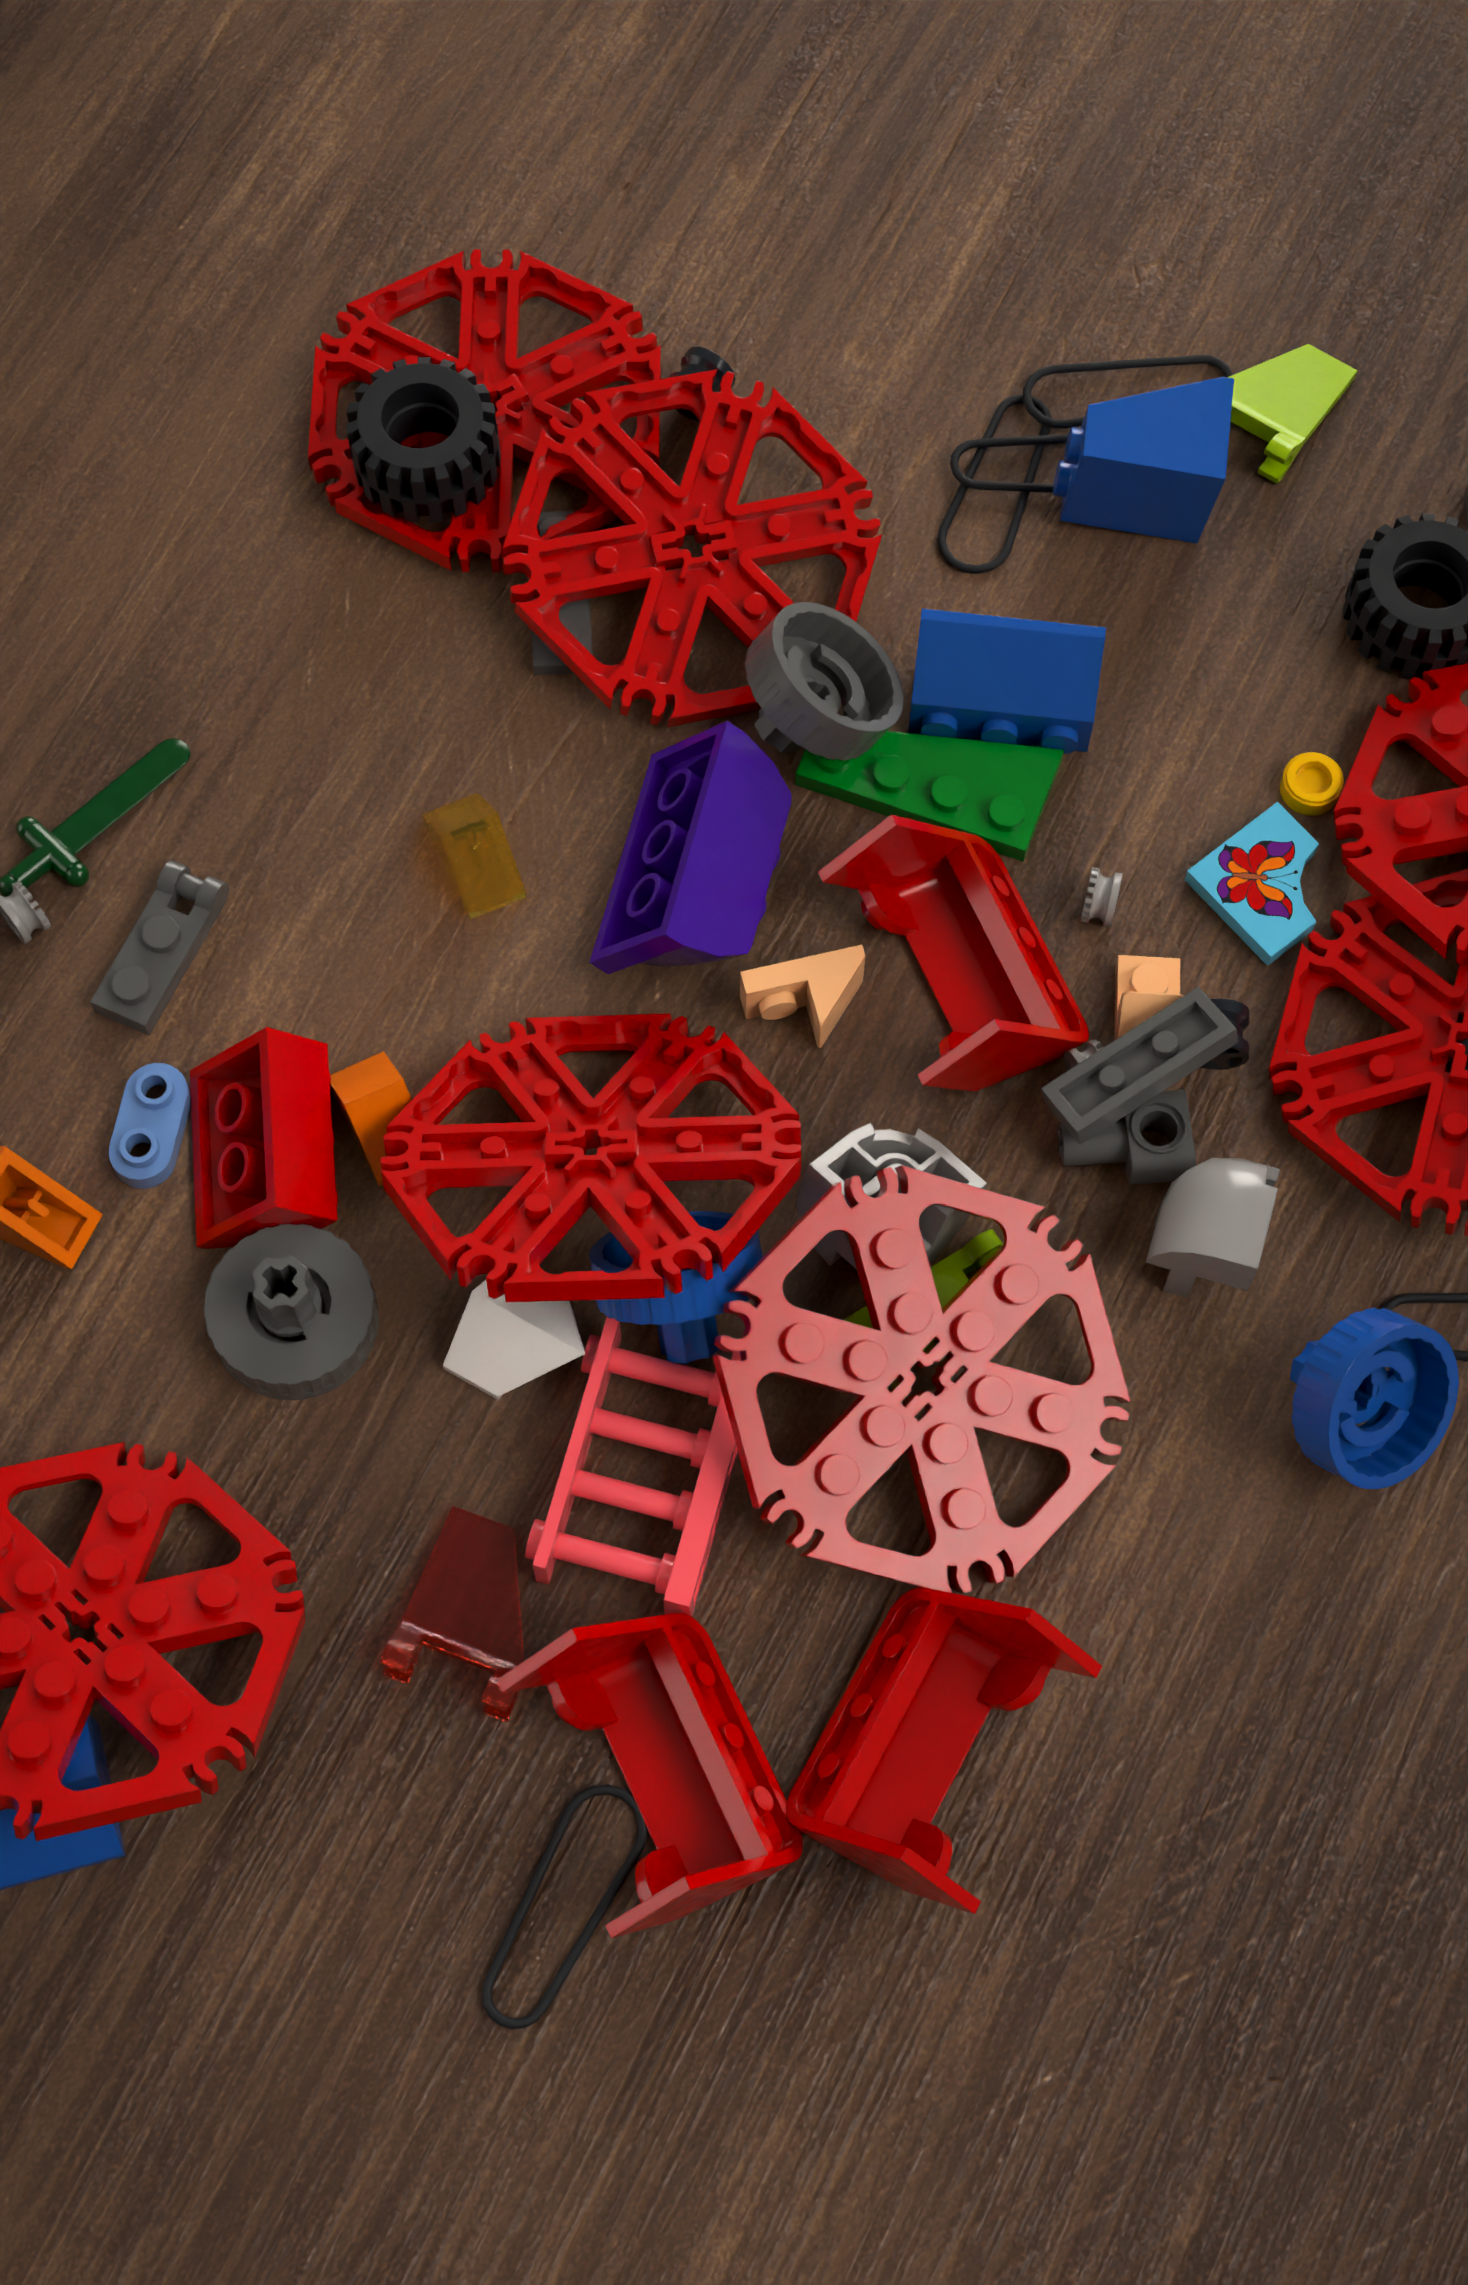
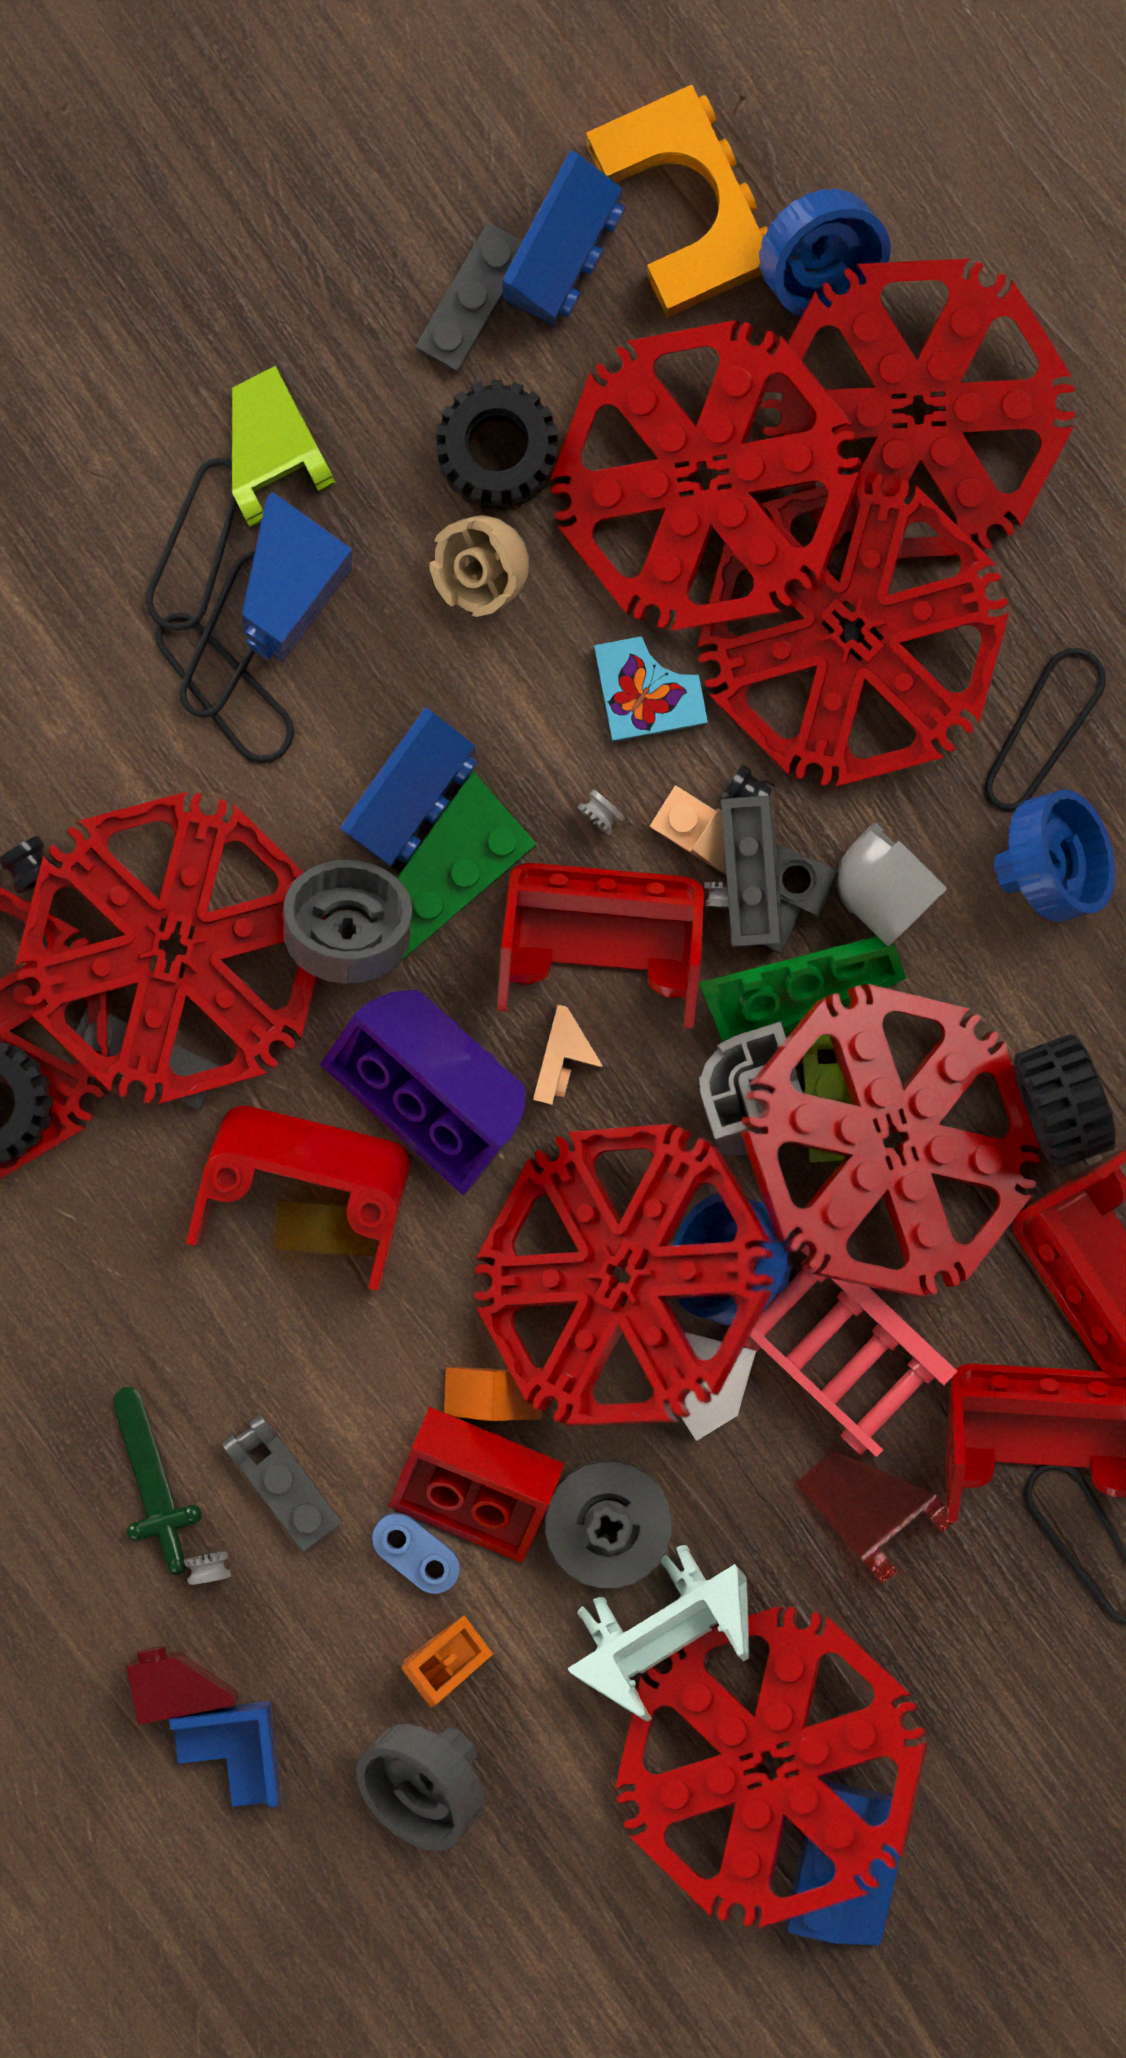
camera: 60 degrees left, 20 degrees up
(243, 1461) = (698, 1609): none -> light aqua hose
(533, 868) = (311, 1152): none -> red windscreen
(1019, 1163) = (792, 986): none -> green wing
(1089, 1553) = (1065, 1101): none -> black tyre
(1290, 636) = (479, 564): none -> tan cylinder
(1311, 783) = (589, 609): yellow tile -> none

